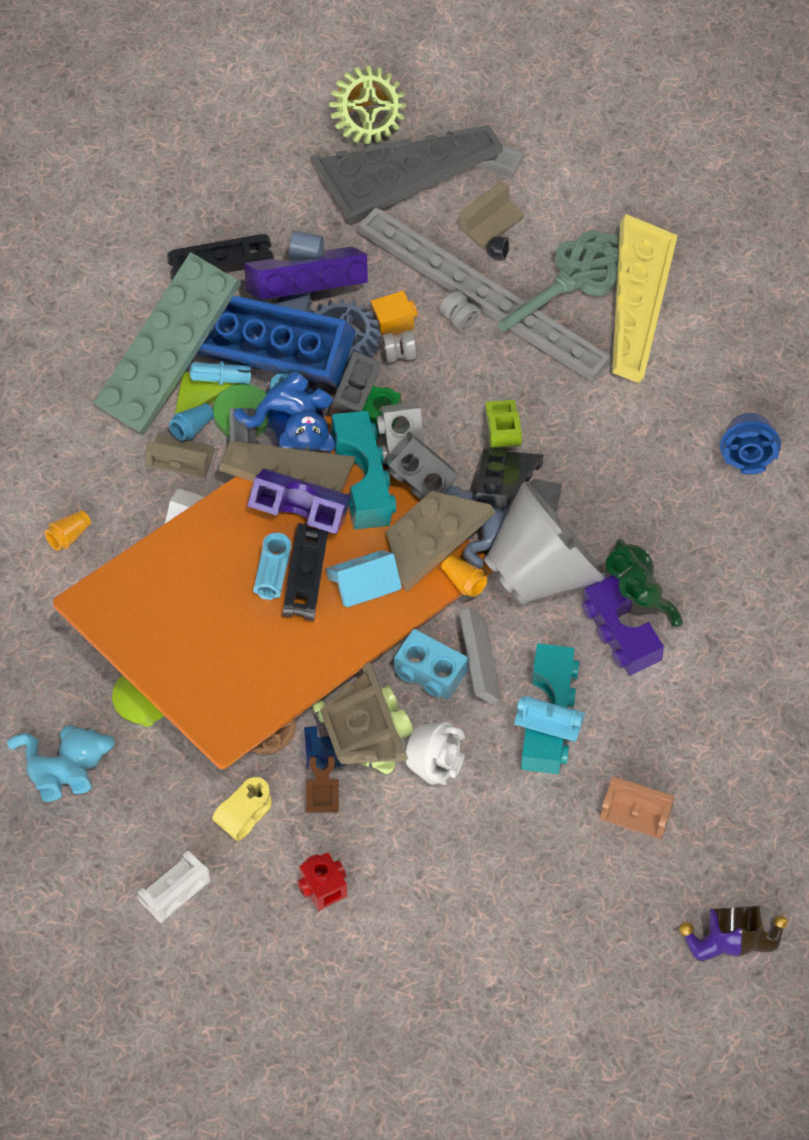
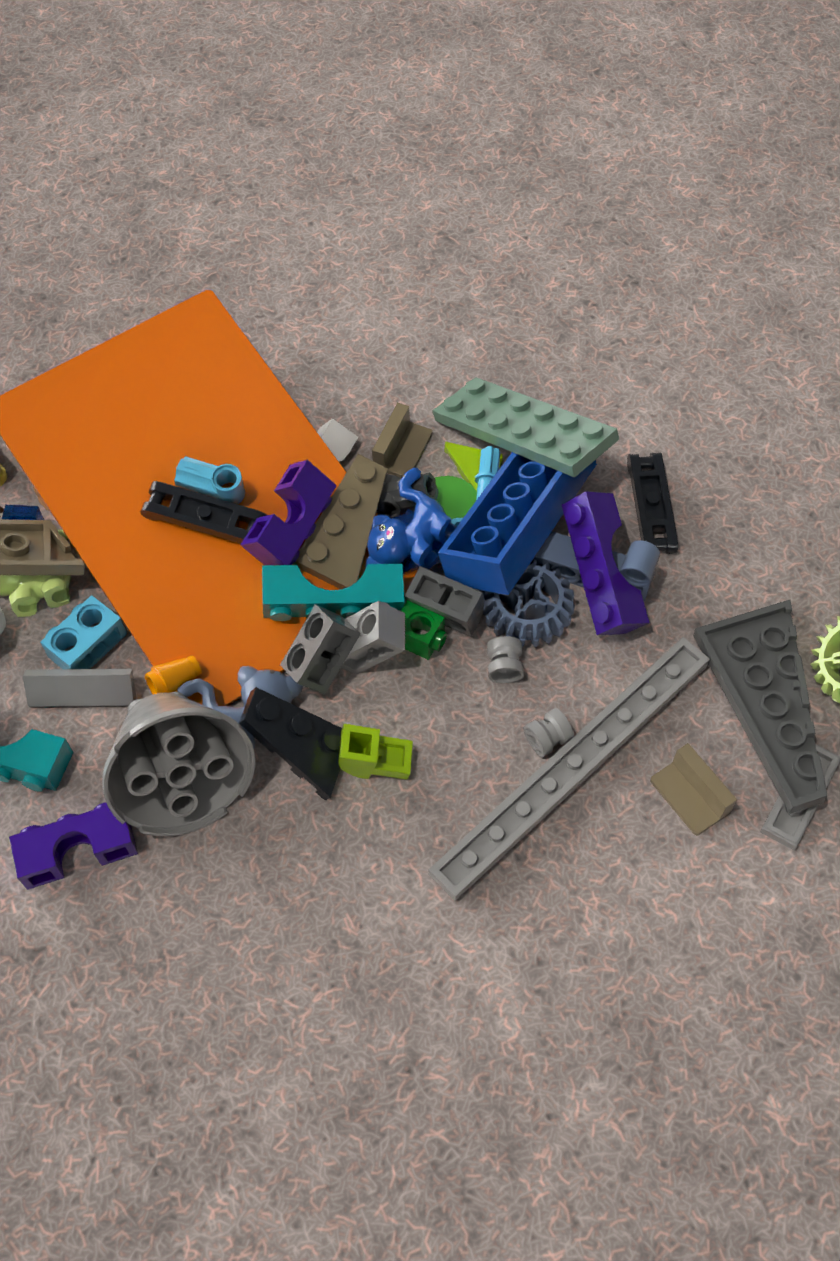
camera: 100 degrees right, 0 degrees up
(66, 530) = (329, 345): light orange cone -> none
(78, 751) = (69, 319): medium azure animal -> none
(190, 422) = (436, 453): dark azure cone -> none
(365, 577) = (189, 570): medium azure panel -> none
(394, 313) = (551, 658): light orange brick -> none
(433, 532) = (229, 646): dark tan wing -> none
(498, 247) = (643, 788): black hinge -> none
(549, 491) = (275, 791): flat silver tile -> none
(591, 274) = (578, 861): sand green piece -> none
(635, 572) = (137, 867): dark green animal -> none
(641, 283) = (578, 960): light yellow wing -> none
(750, 443) = (285, 1048): blue cone -> none

